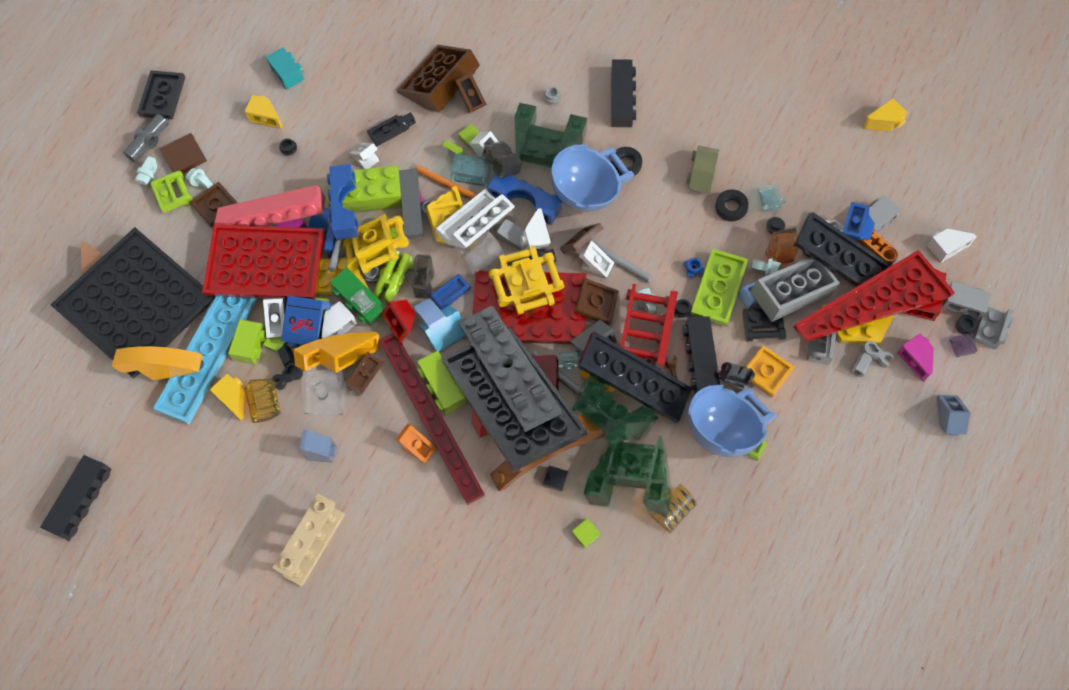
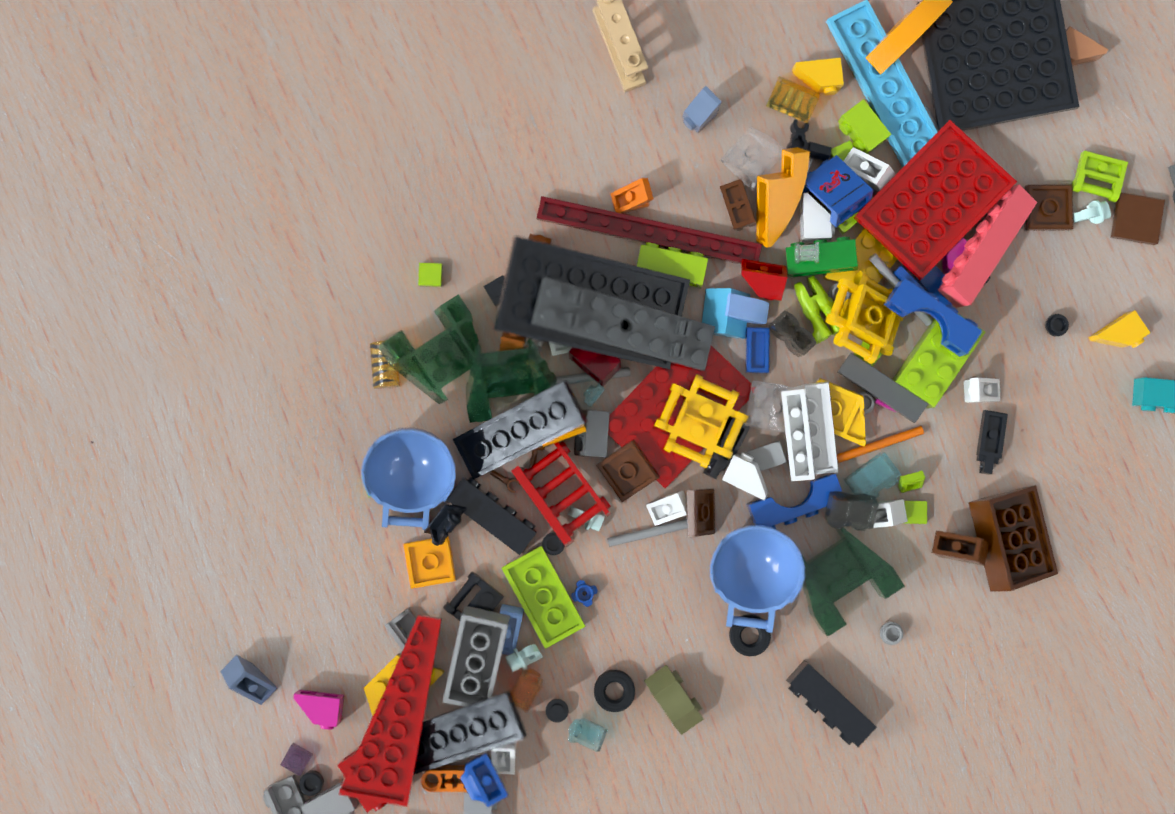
camera: 125 degrees right, 20 degrees up
(147, 171) = (1145, 168): light aqua piece -> none
(870, 352) = (365, 669): light grey bar -> none

